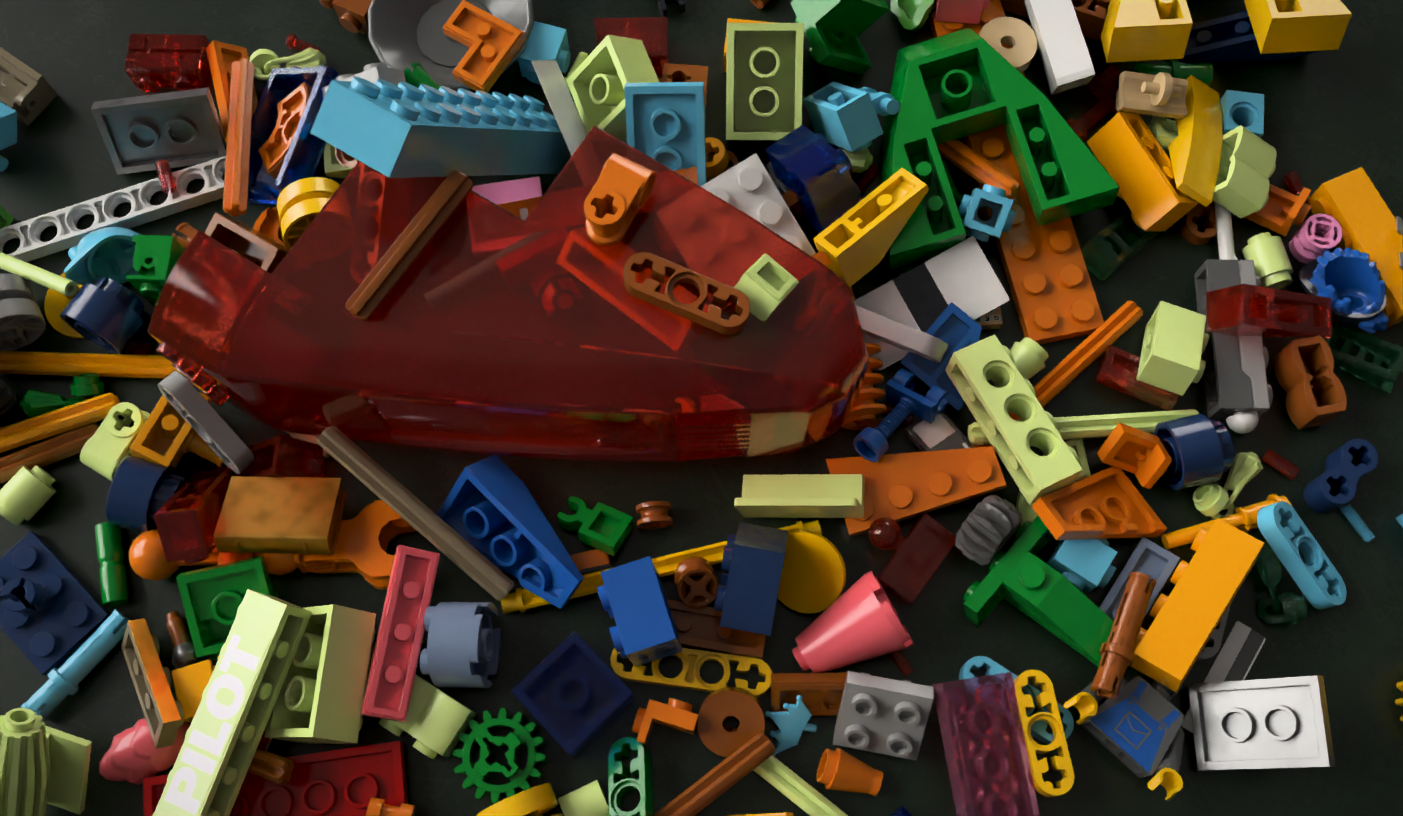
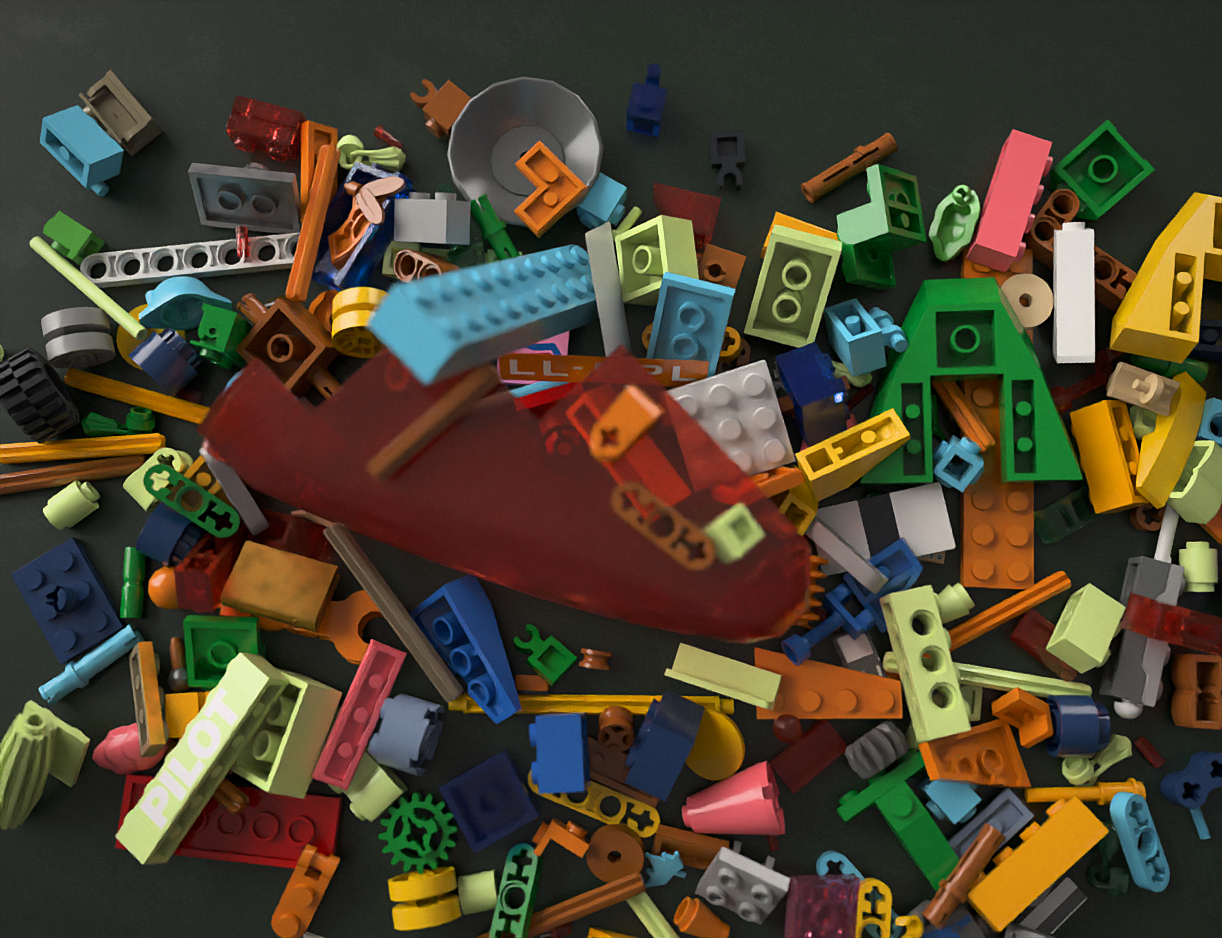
camera: 15 degrees right, 10 degrees up
(136, 423) = (174, 478): none -> green beam
(293, 93) = (369, 193): none -> piece

